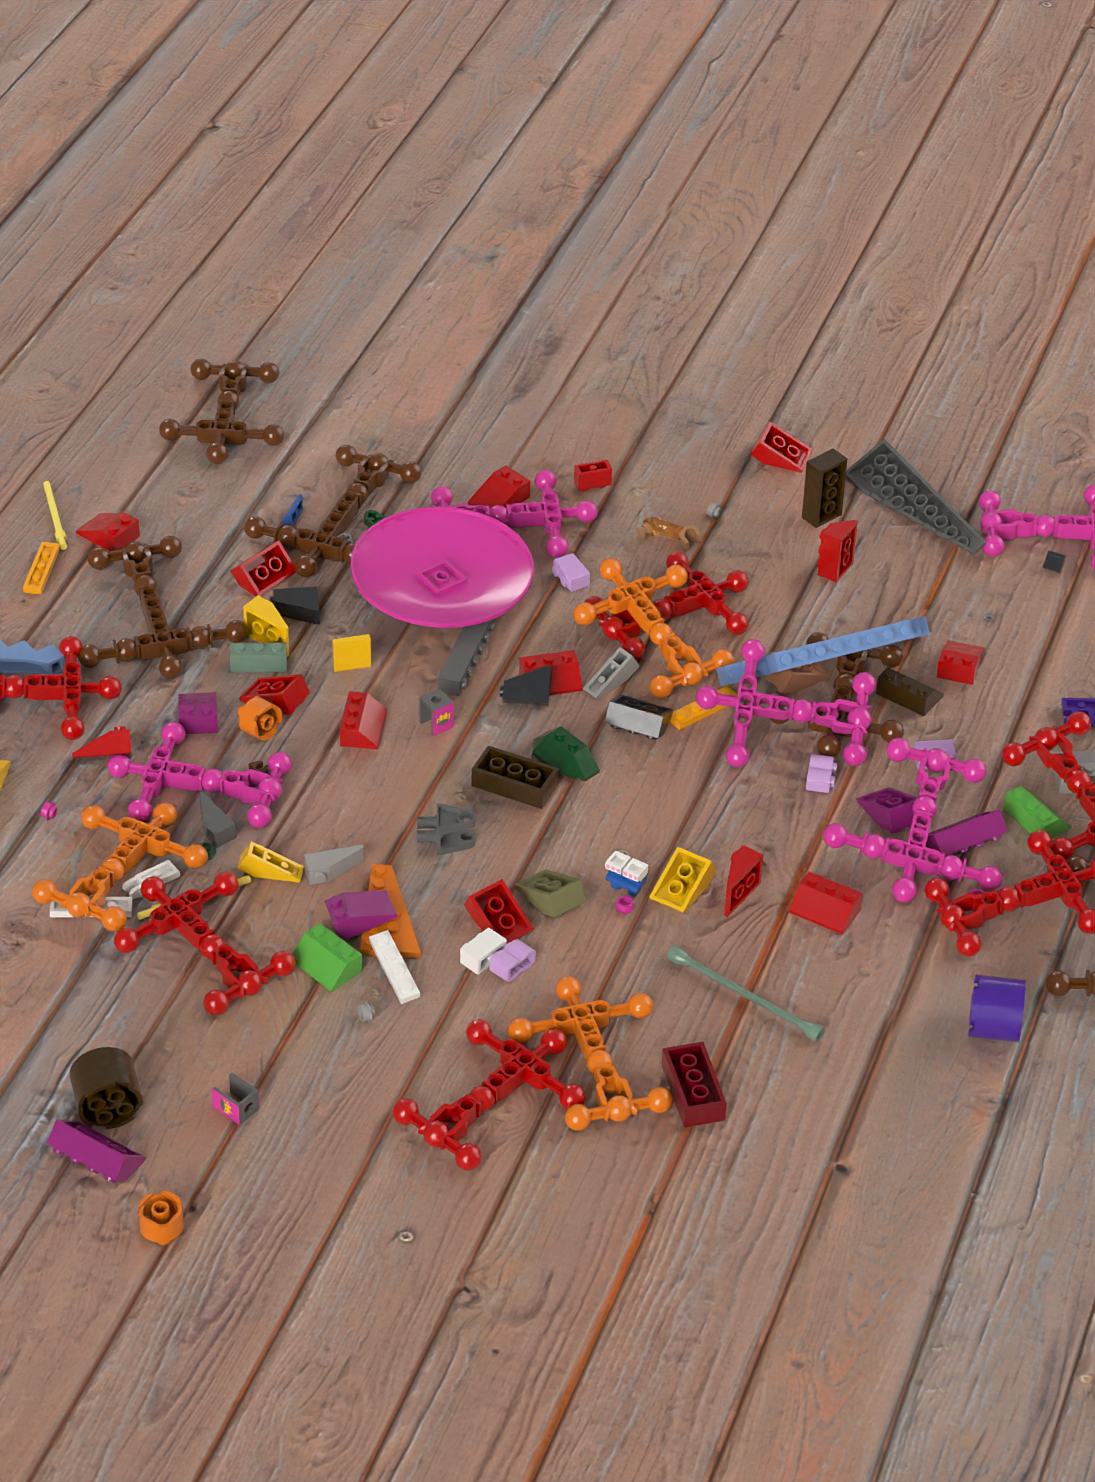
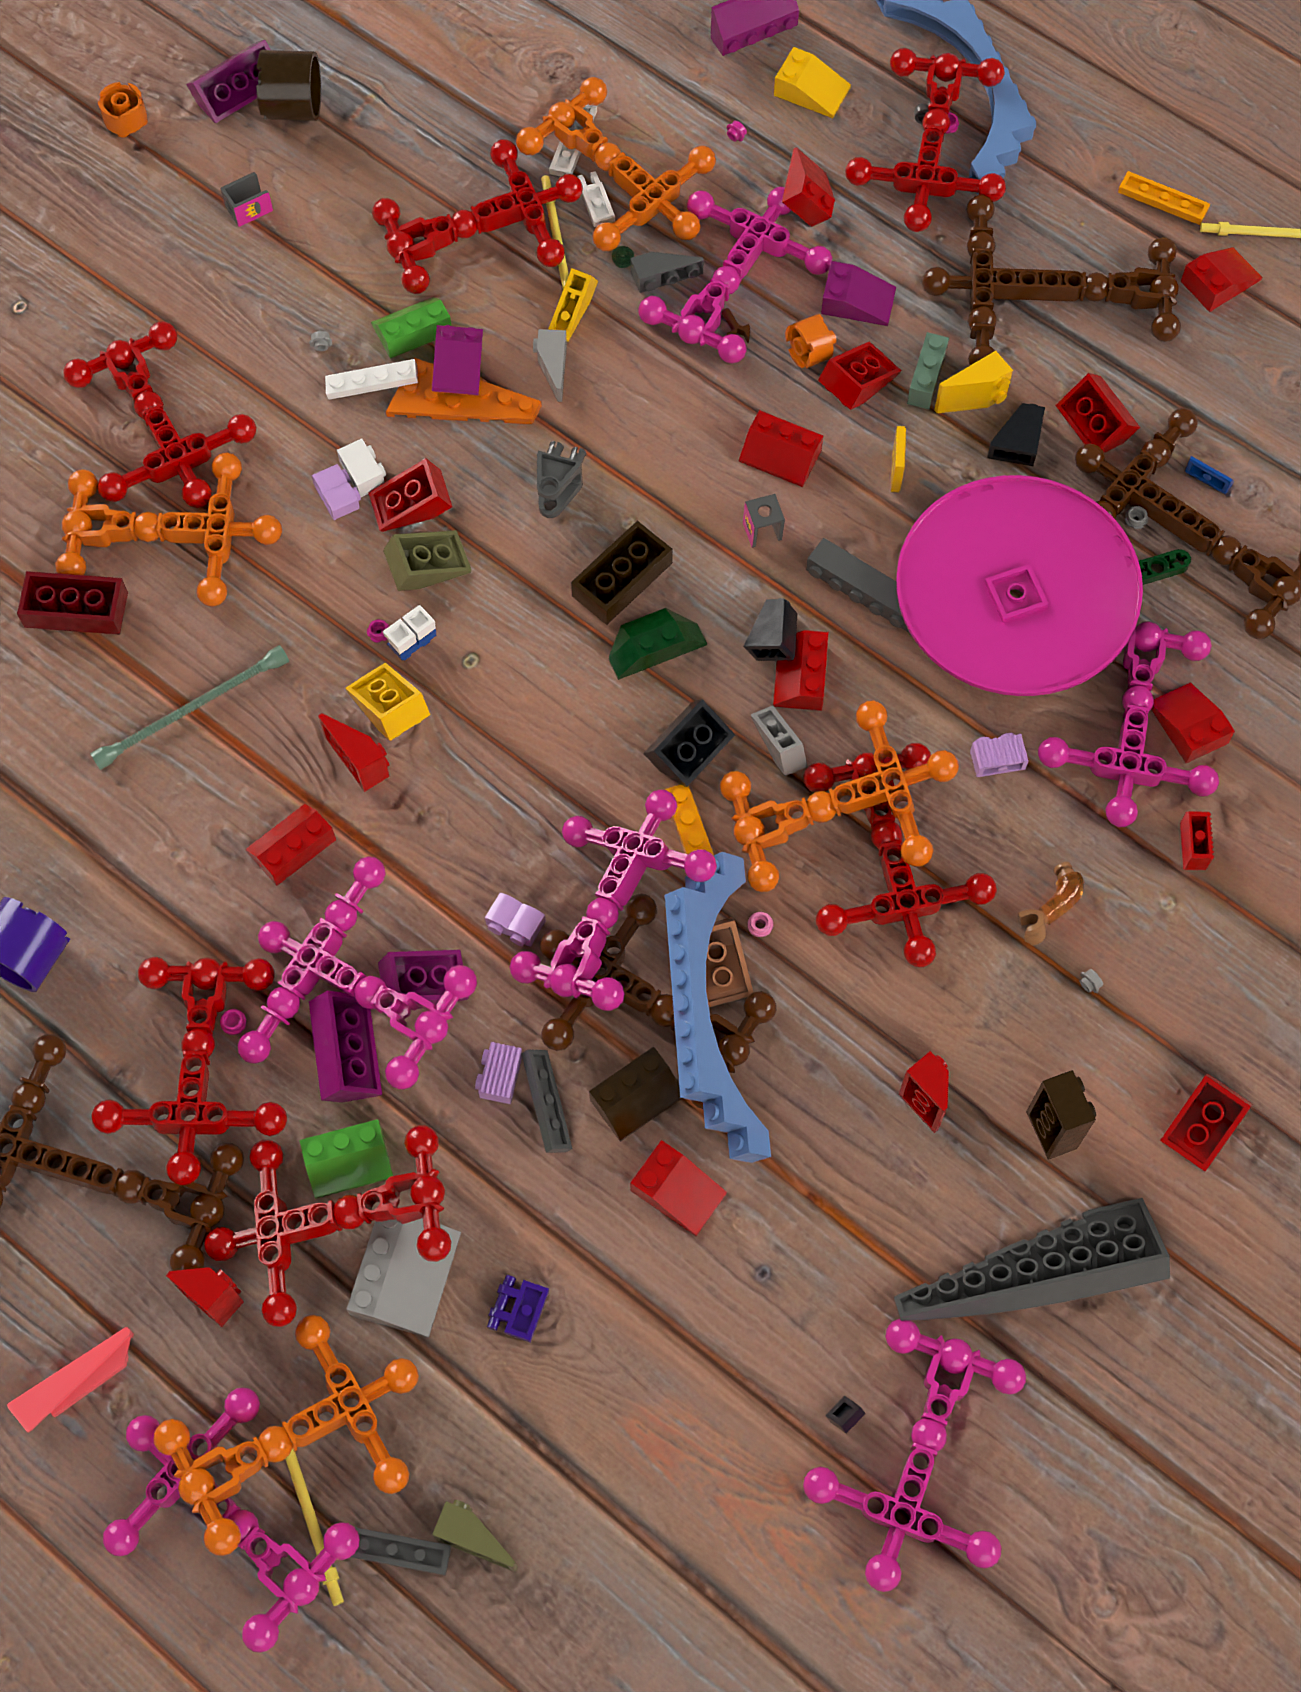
camera: 110 degrees right, 25 degrees up
(946, 726) = (546, 1101): none -> dark grey plate

